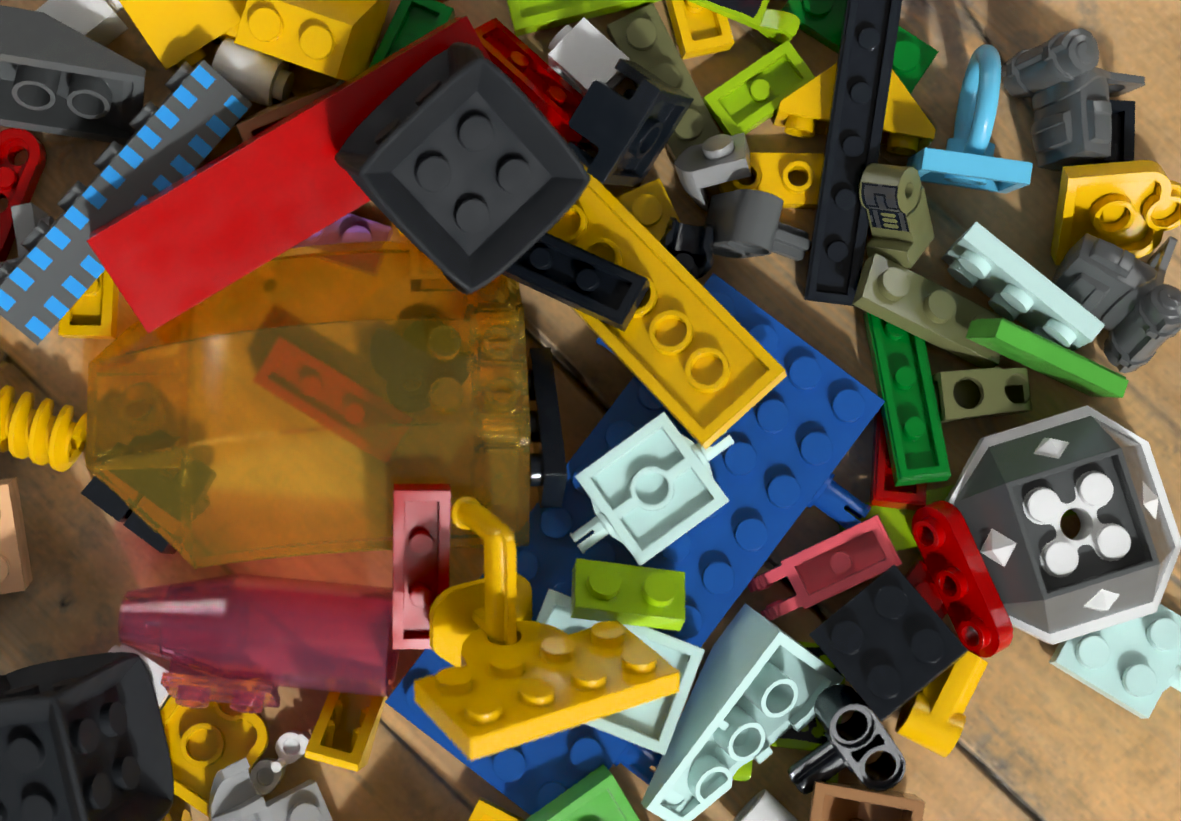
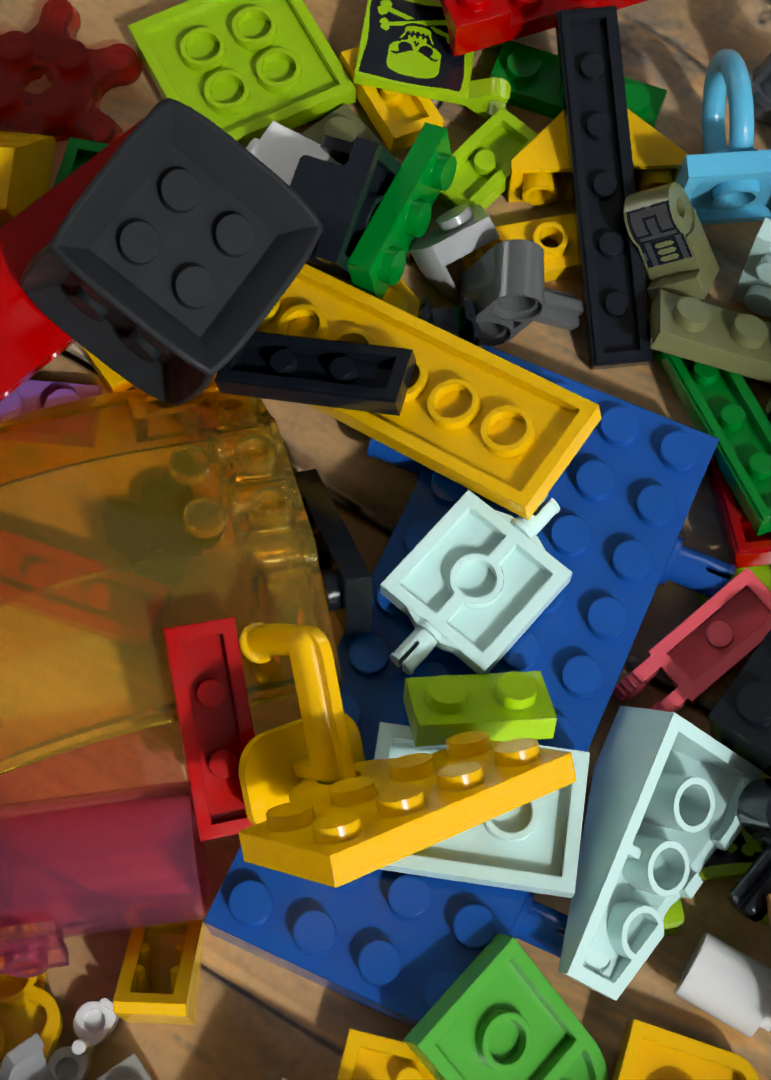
camera: 15 degrees left, 15 degrees down
(674, 135) = (403, 212): none -> green plate

